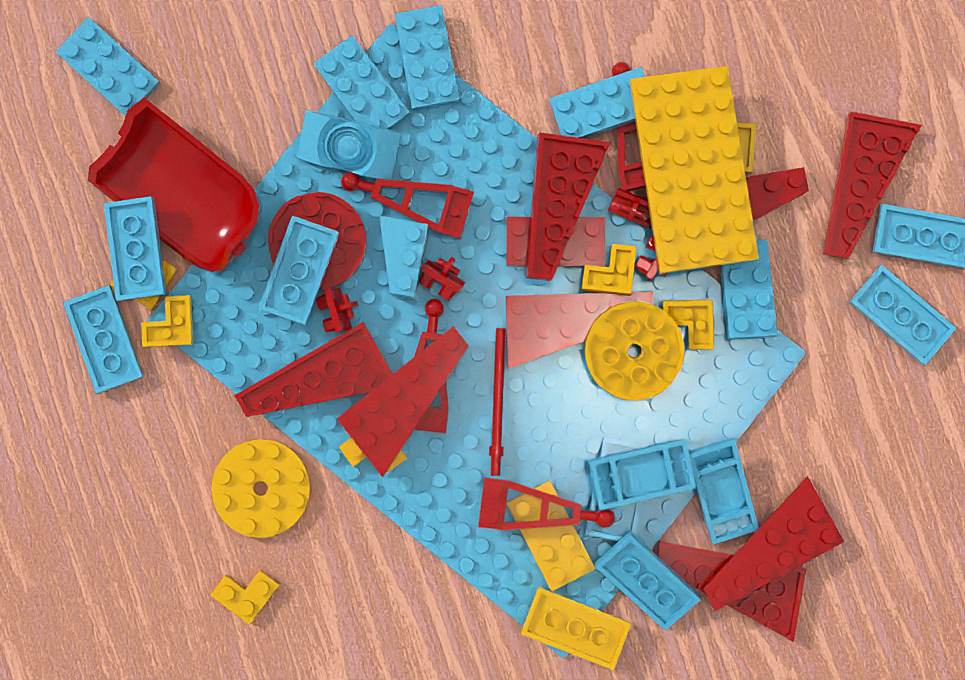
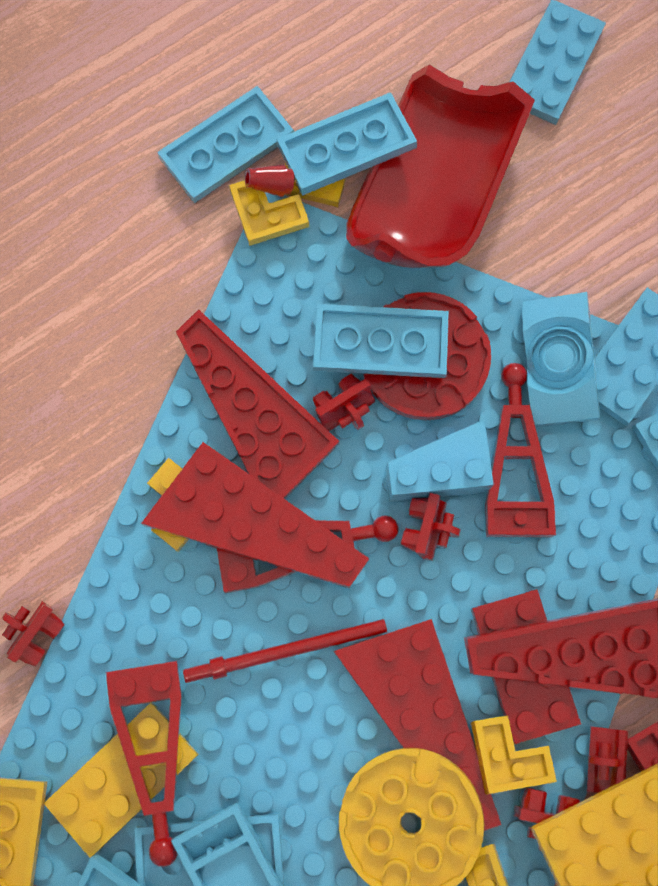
camera: 70 degrees right, 10 degrees down
(149, 314) = (270, 179): none -> red cone
(235, 492) = (96, 412): yellow plate -> none
(441, 582) = (23, 646): none -> red hips

